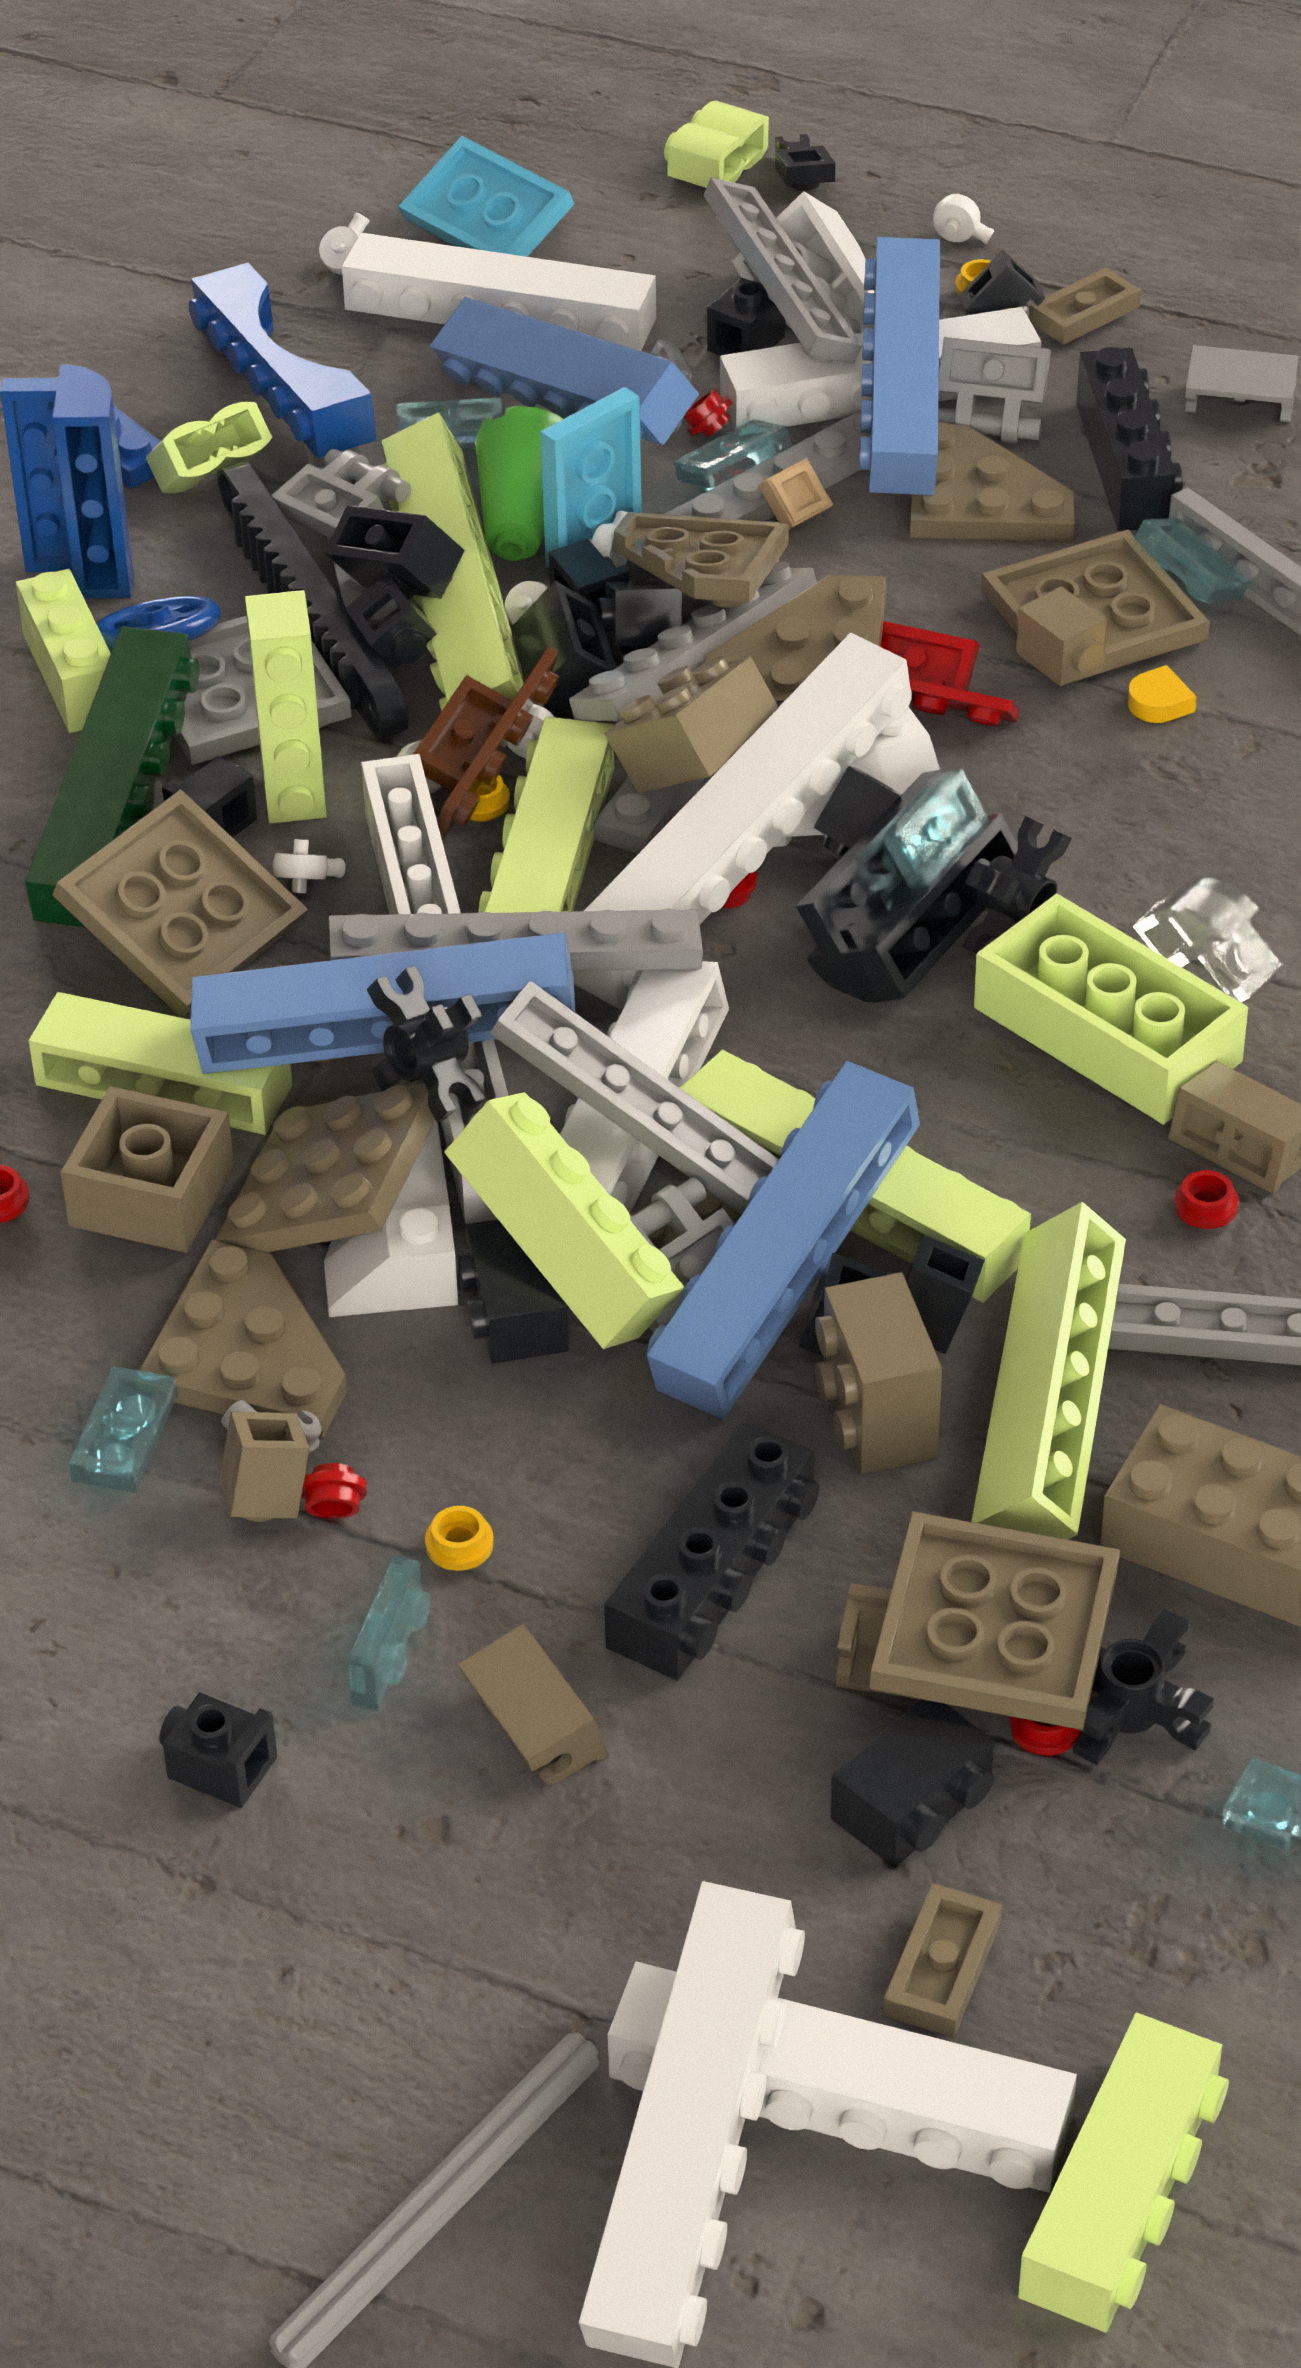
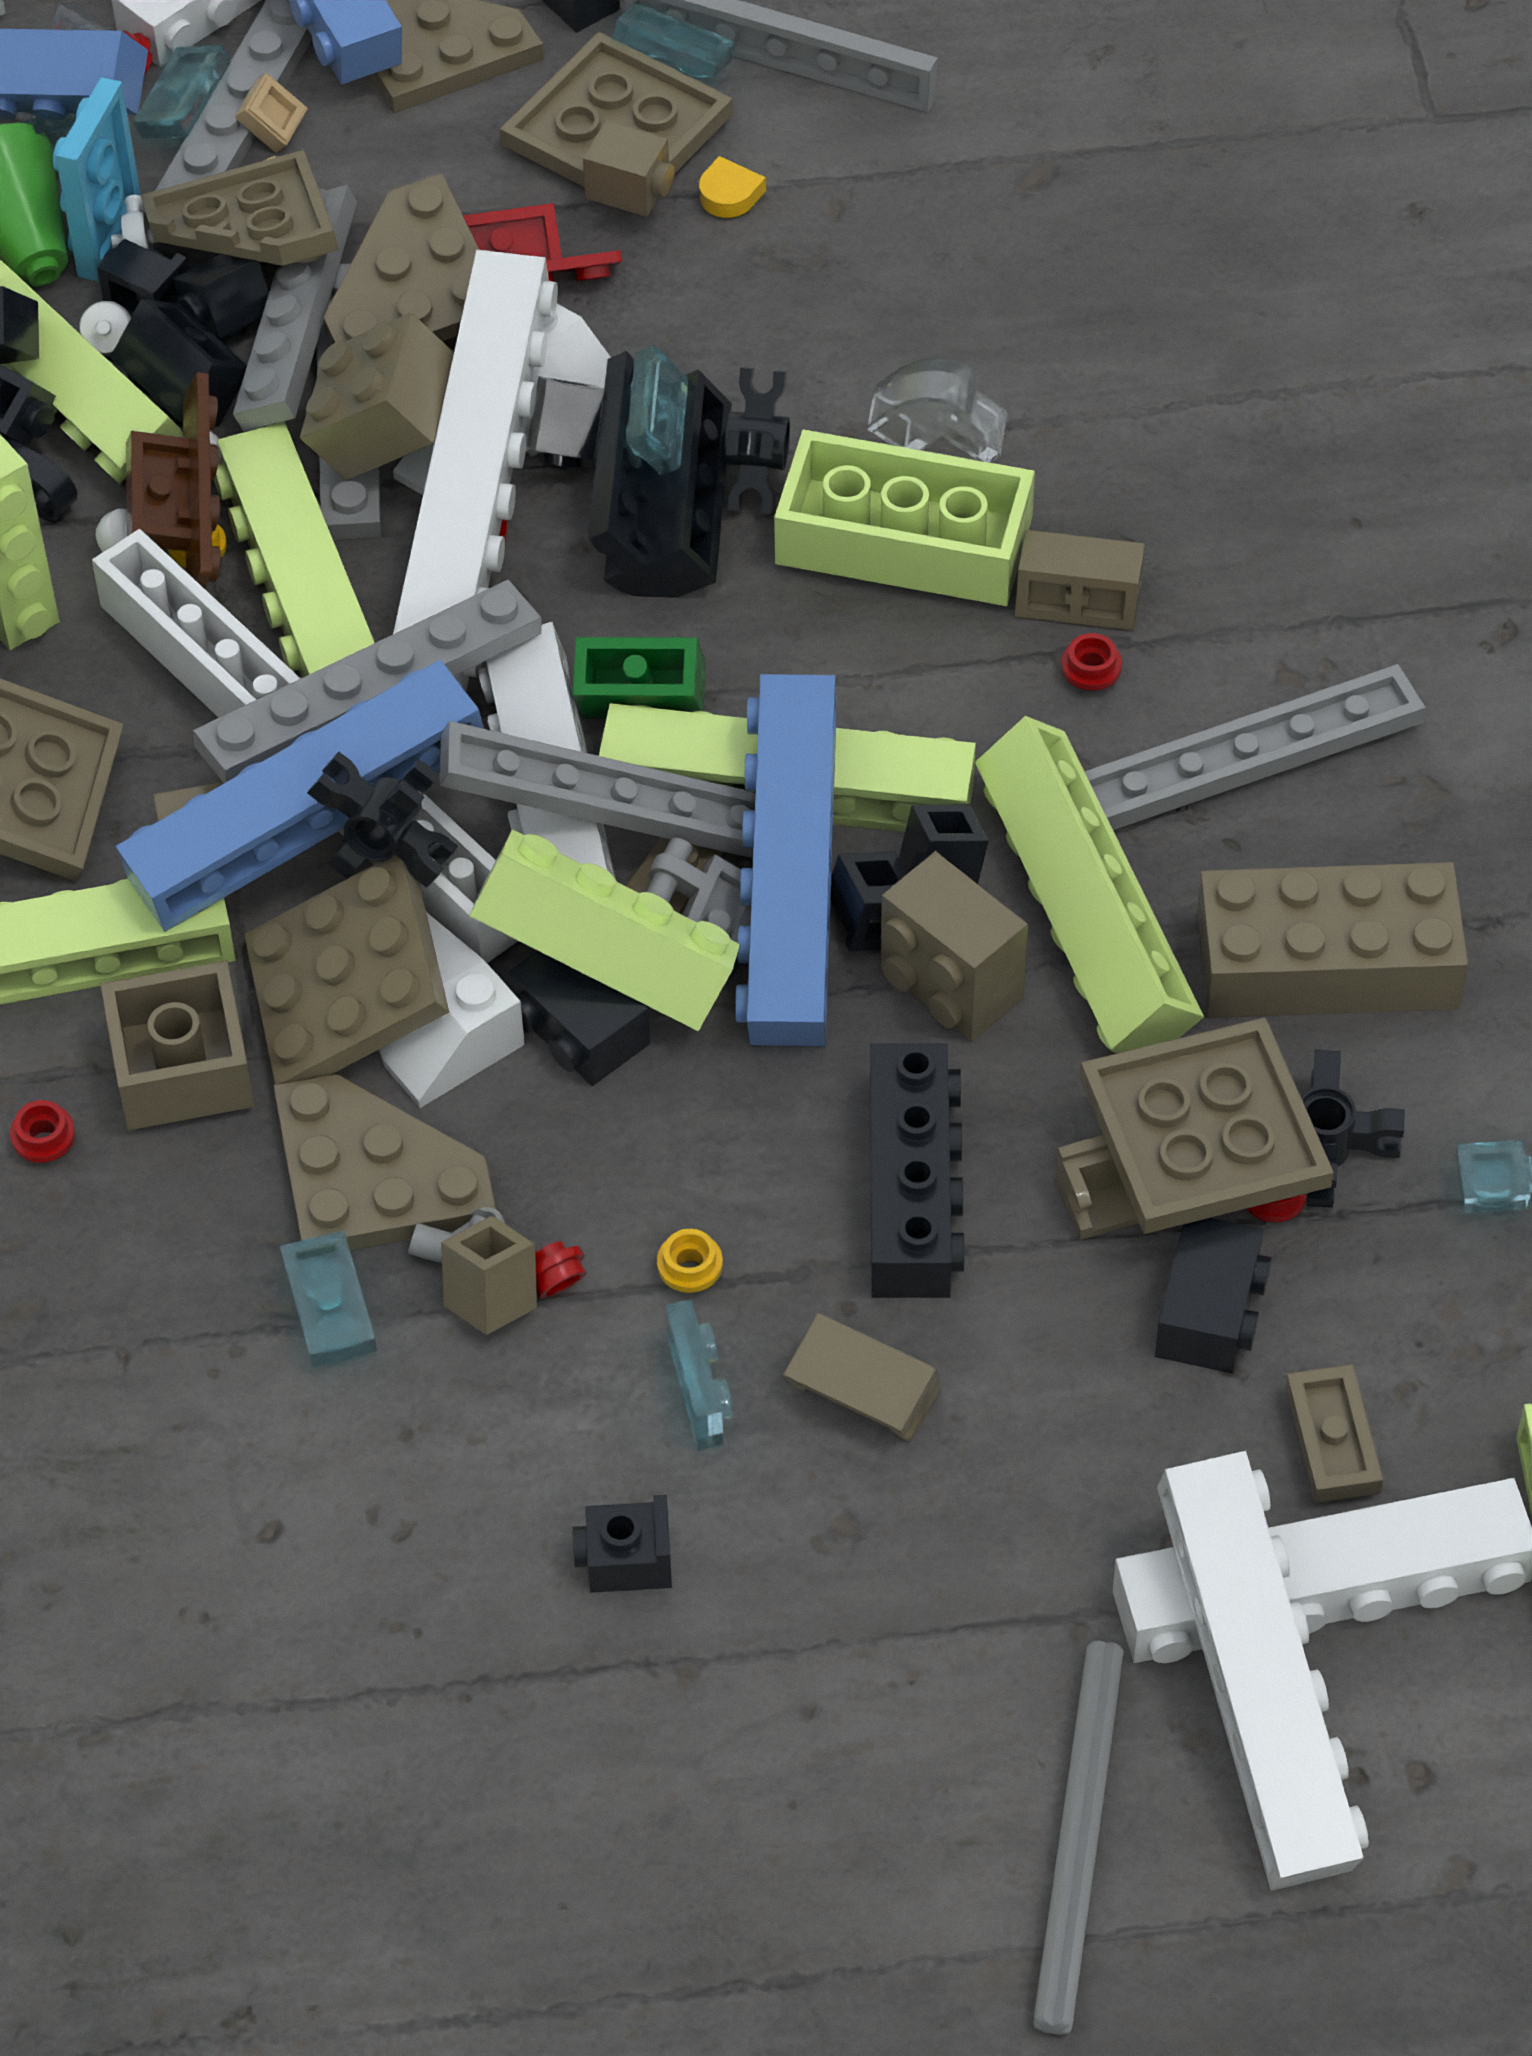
camera: 30 degrees left, 10 degrees up
(305, 866) = (86, 682): white piece -> none
(771, 1035) = (638, 672): none -> green brick

